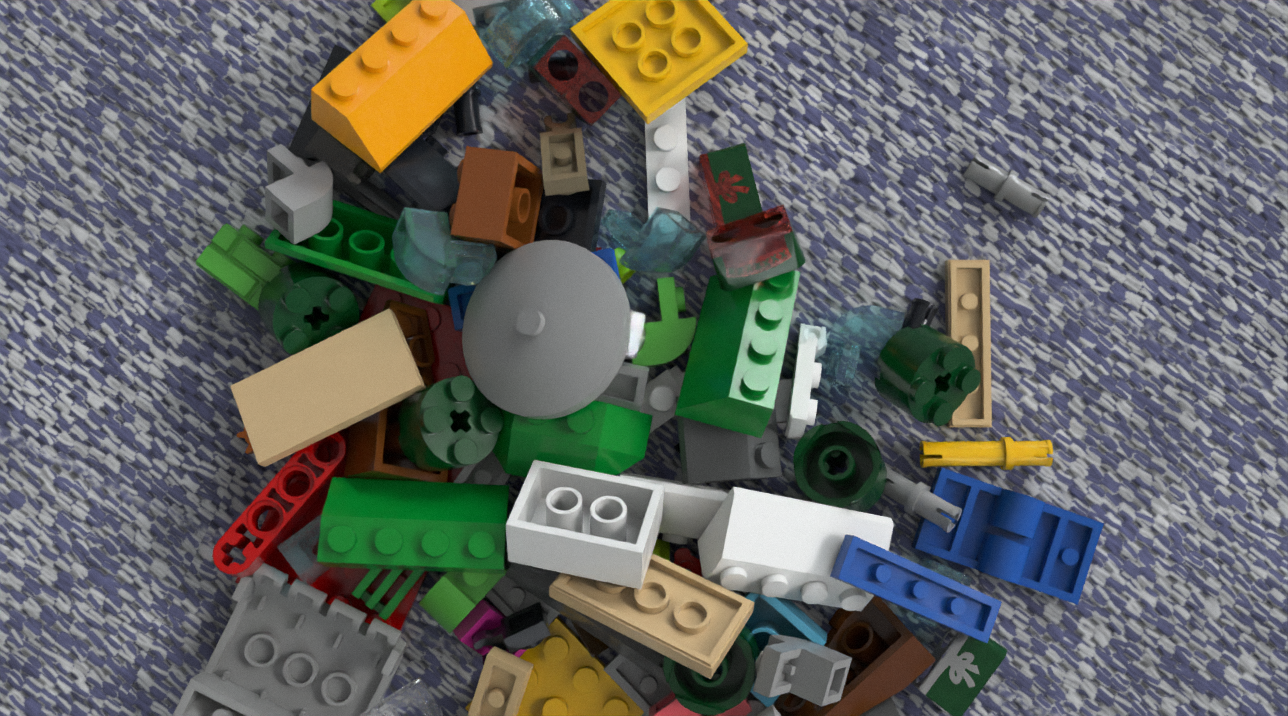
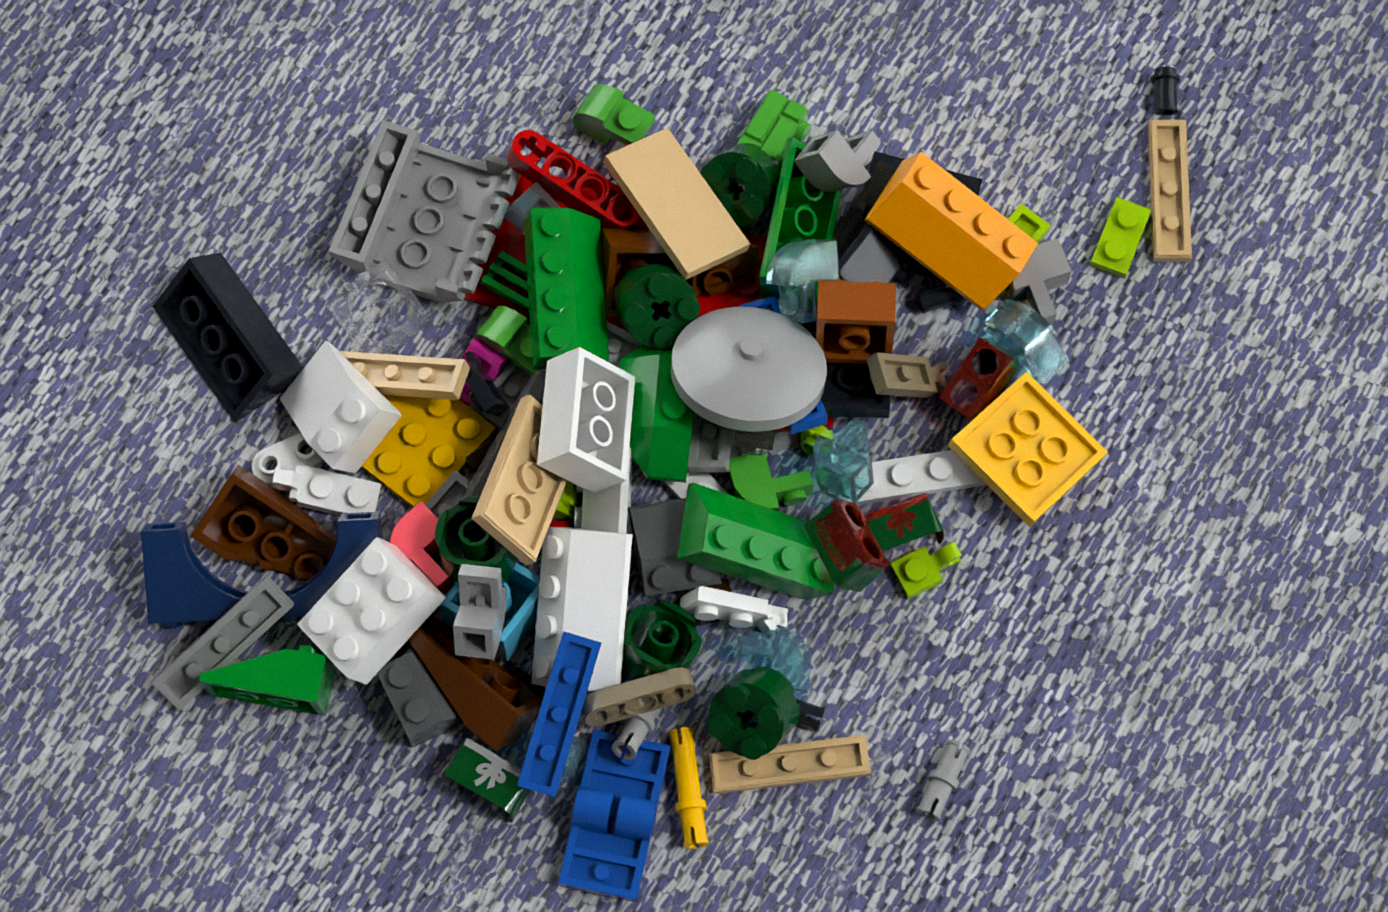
camera: 85 degrees right, 15 degrees down
(202, 448) = (609, 115): none -> bright green brick
(773, 176) = (920, 571): none -> lime plate
(900, 497) = (638, 696): none -> dark tan beam

